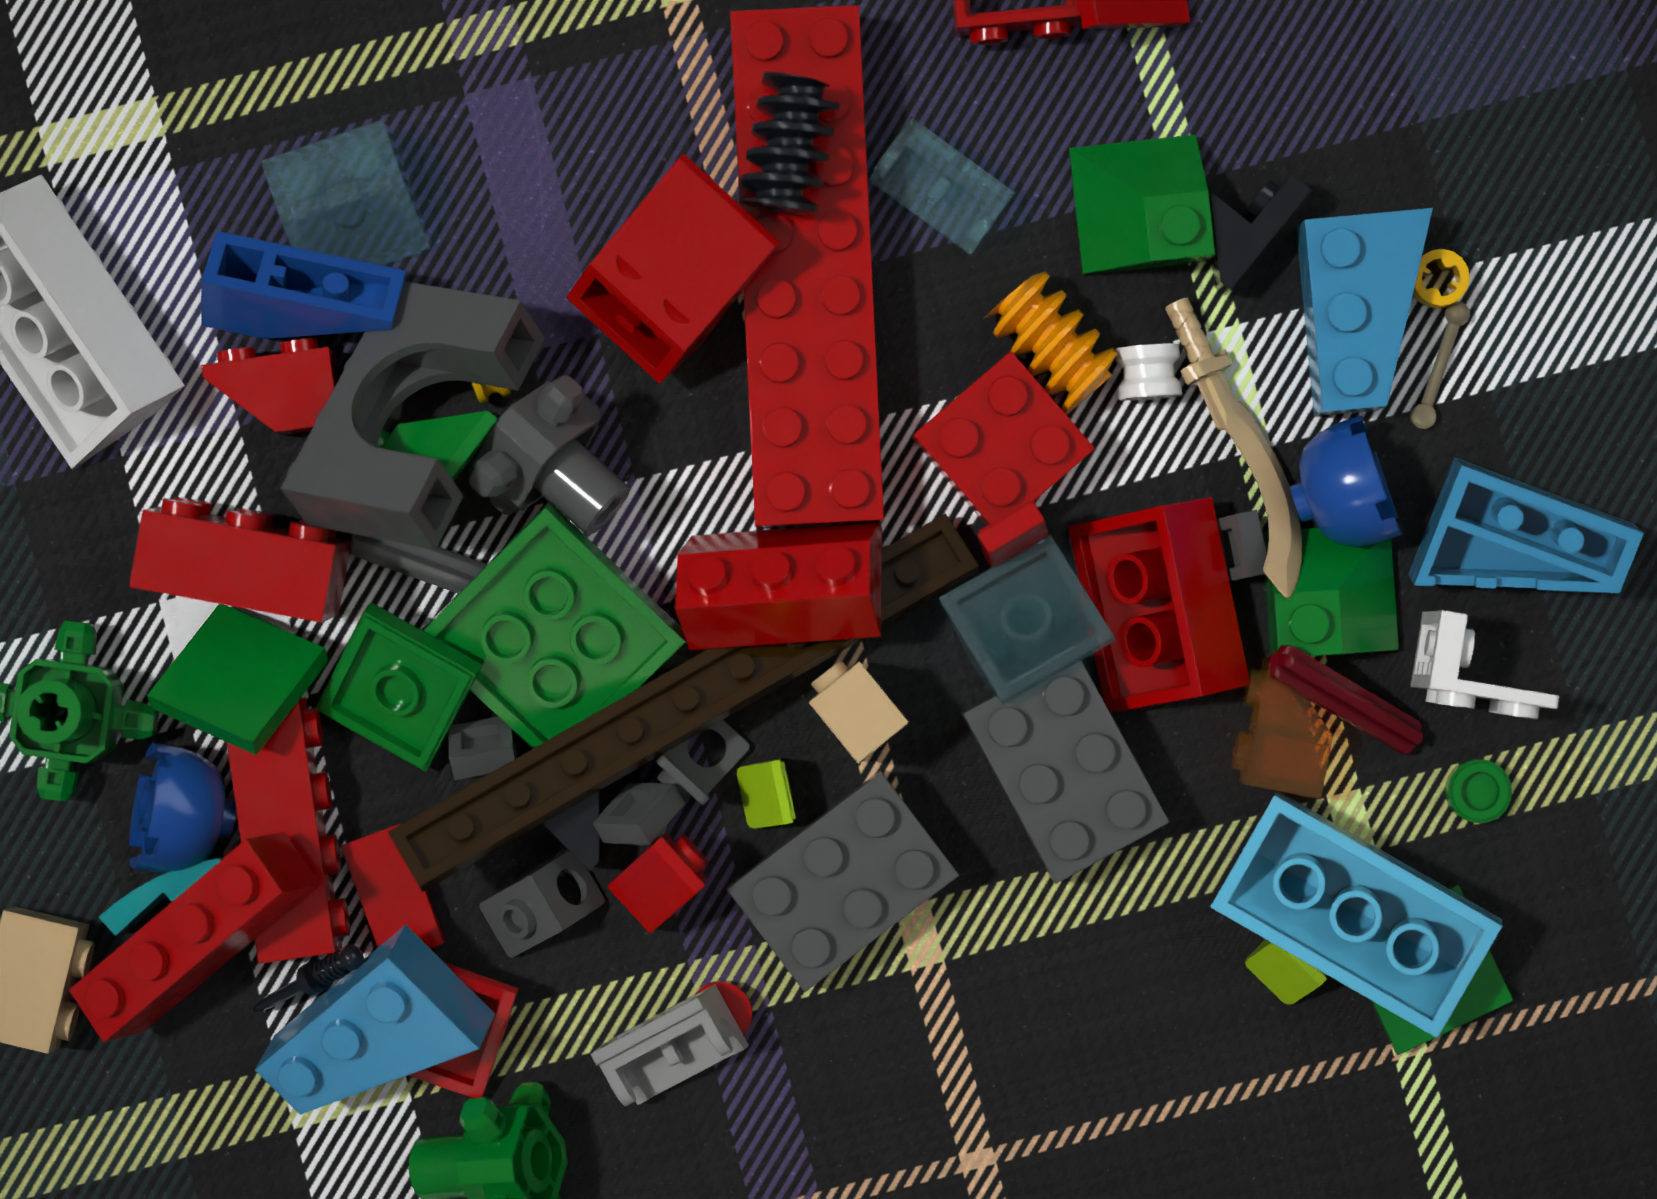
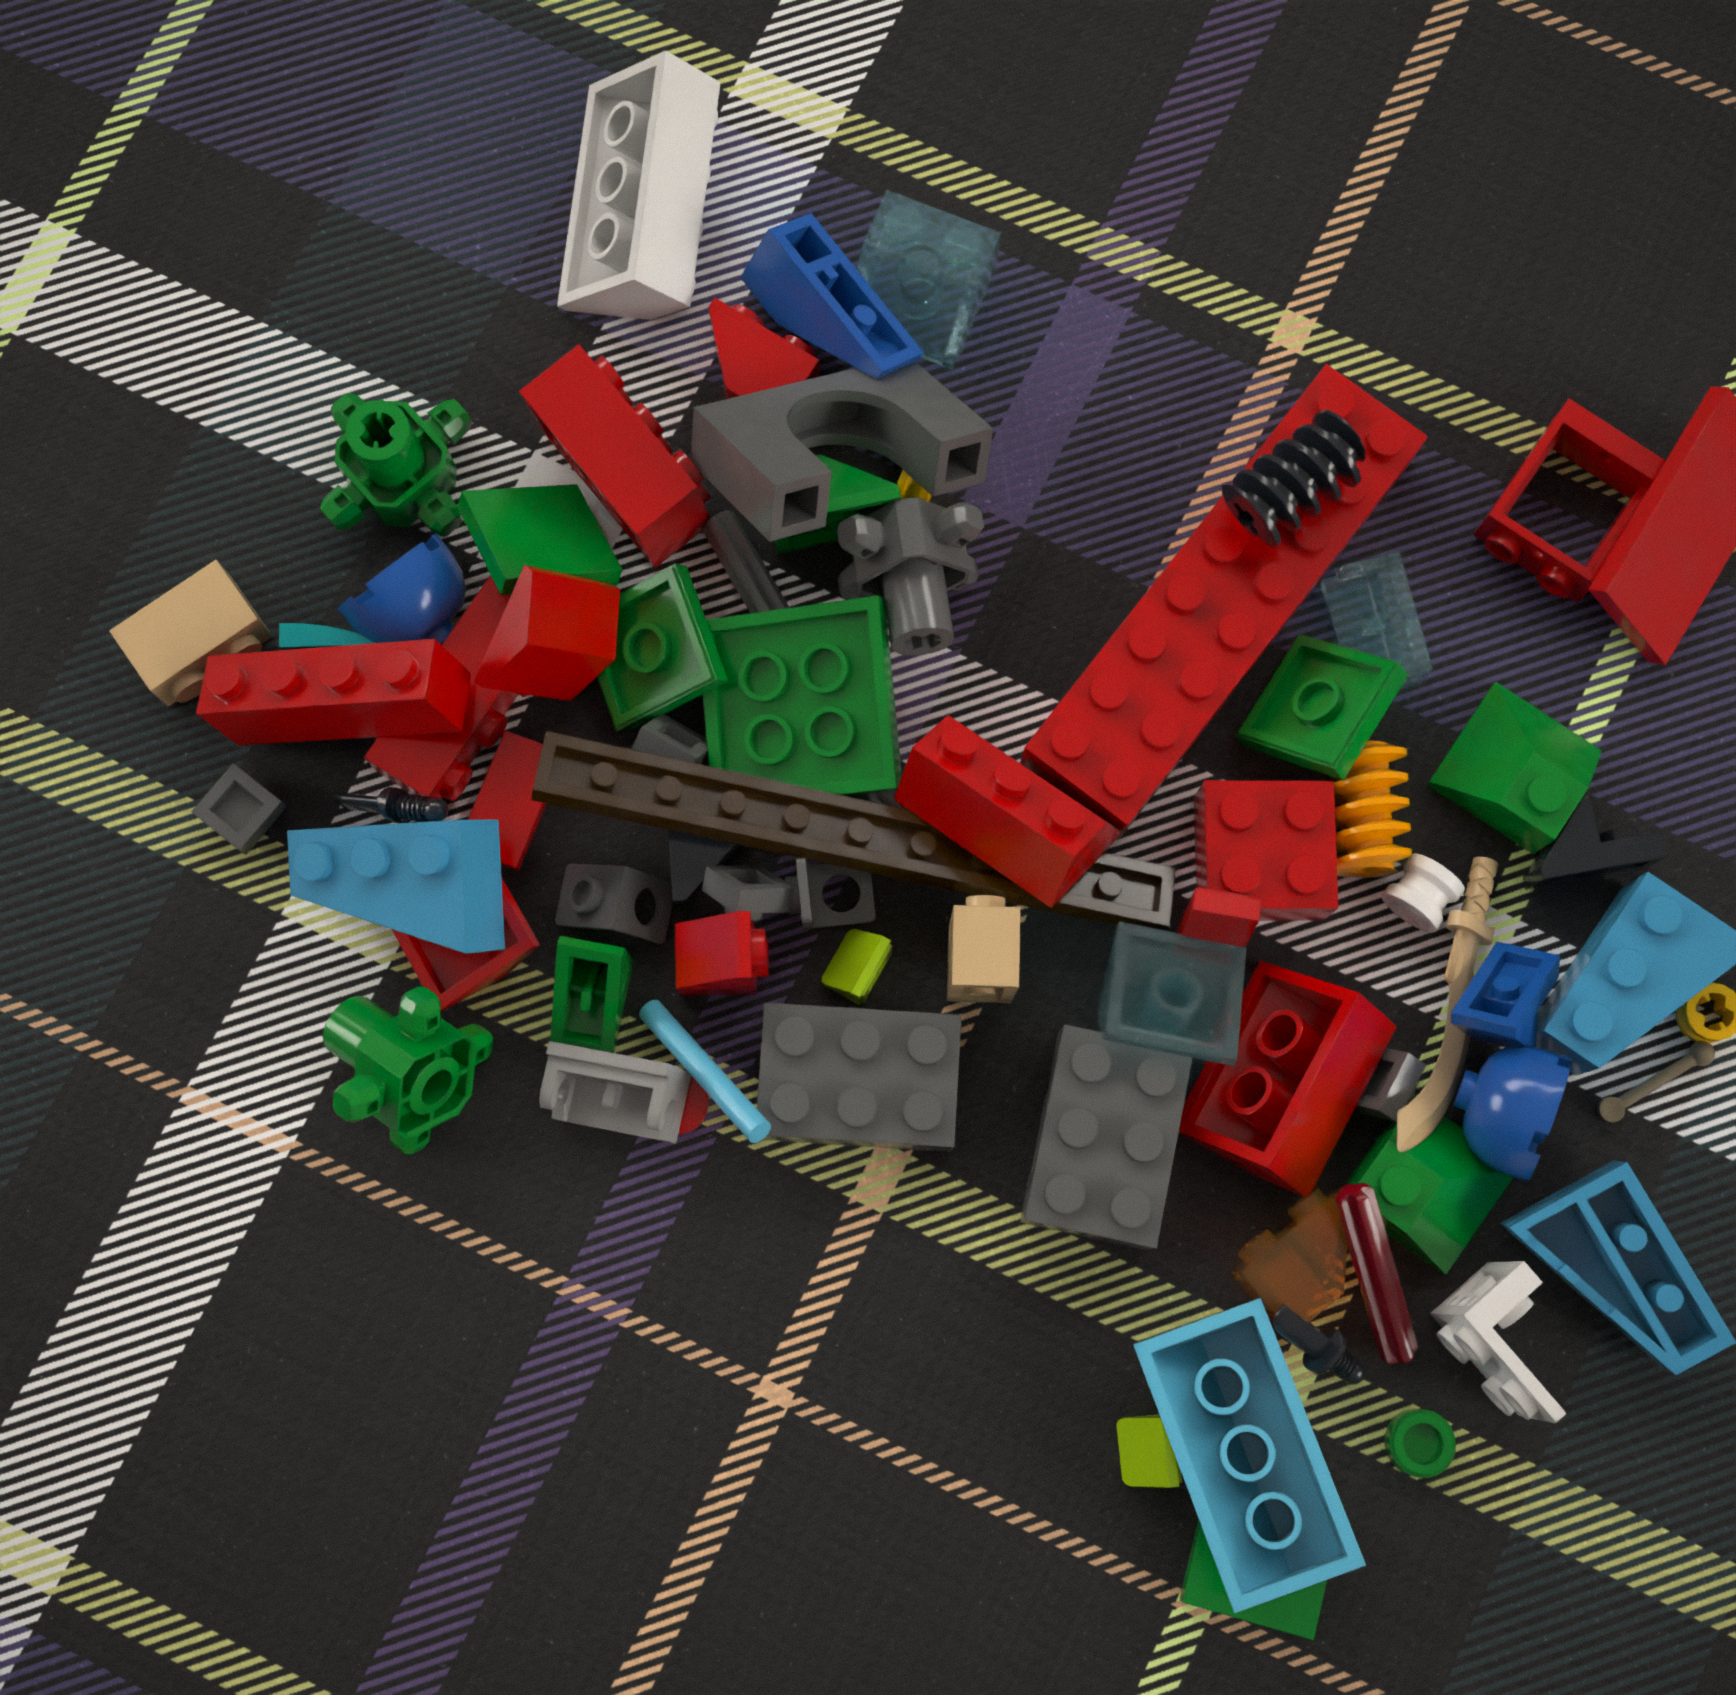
camera: 40 degrees right, 10 degrees down
(192, 1080) = (239, 809): none -> dark grey plate
(320, 747) = (552, 635): none -> red slope
(587, 993) = (589, 993): none -> green slope
(672, 269) = (1126, 507): red slope -> none
(724, 975) = (705, 1071): none -> medium azure bar
(952, 292) = (1322, 706): none -> green tile
(1275, 402) = (1506, 996): none -> blue slope
(1349, 788) = (1321, 1349): none -> black piece

